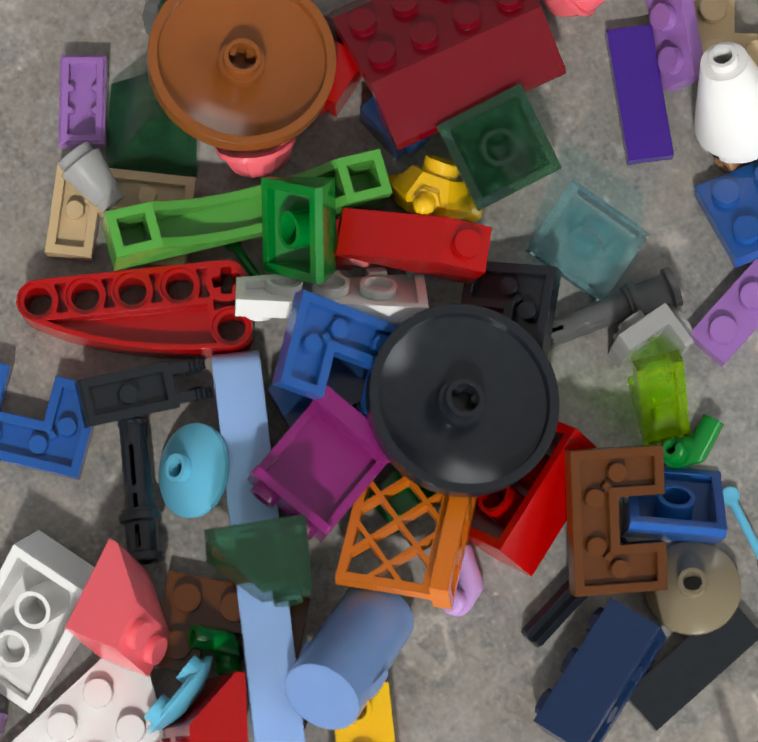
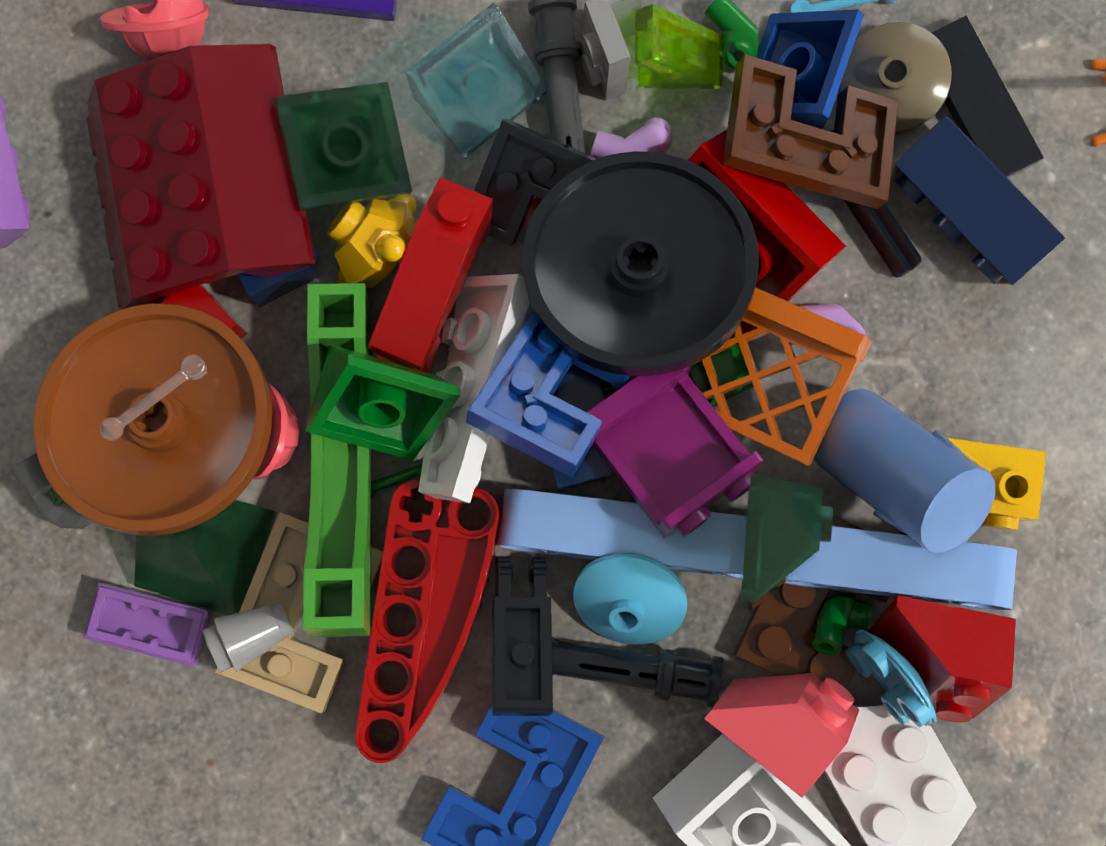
camera: 70 degrees left, 5 degrees up
(287, 77) = (191, 368): none -> clear hinge
(571, 387) = (652, 137): none -> lavender arm

